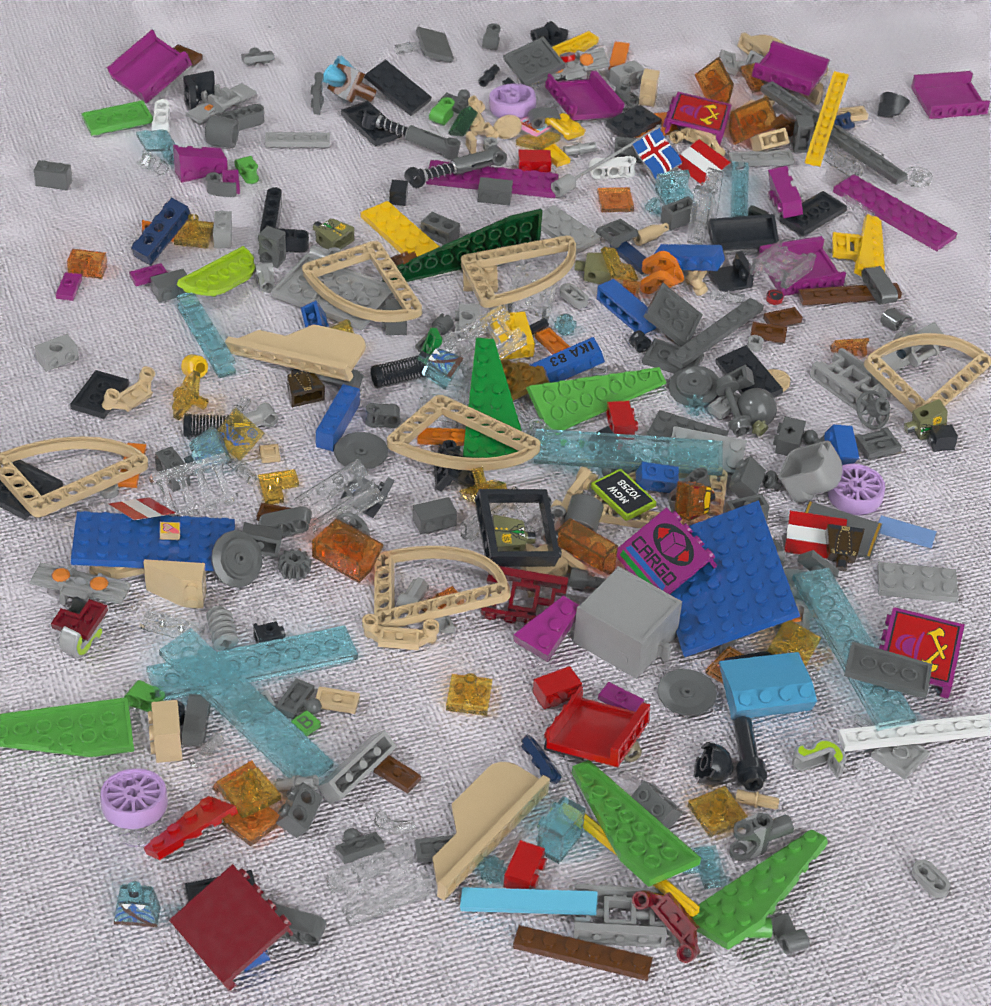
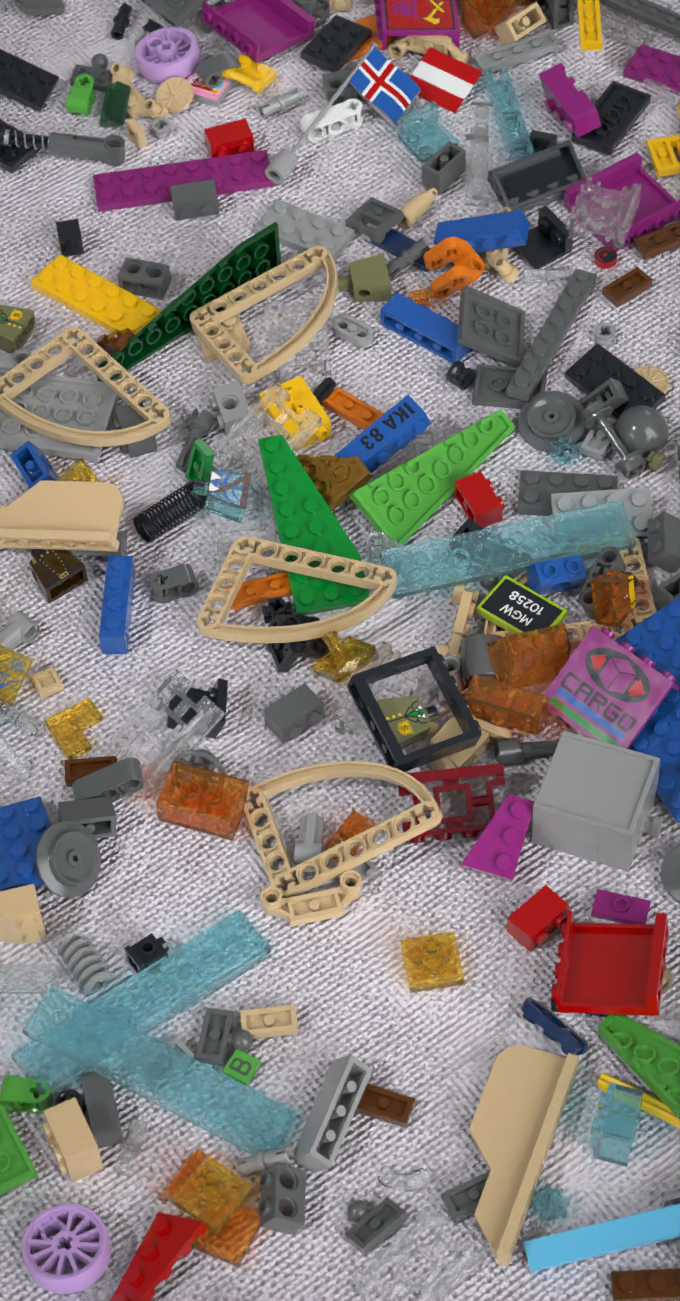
camera: 10 degrees left, 10 degrees up
(294, 564) = (142, 840): dark grey gear -> none
(363, 446) = (164, 644): dark grey piece -> none
(457, 166) = (174, 150): piece -> none
(525, 866) = (590, 1189): red brick -> none
(538, 143) = (222, 110): clear yellow tile -> none
(558, 157) = (257, 122): yellow tile -> none
(565, 324) = (357, 377): clear light blue gear -> none
(615, 199) = (352, 167): clear orange tile -> none
(616, 517) = (530, 656): none -> clear orange slope
(617, 269) = (397, 277): clear yellow tile -> none
(635, 258) = (407, 257): none -> dark grey pin
(653, 205) = (405, 164): clear light blue tile -> none
(769, 332) = (617, 313): reddish brown plate -> none

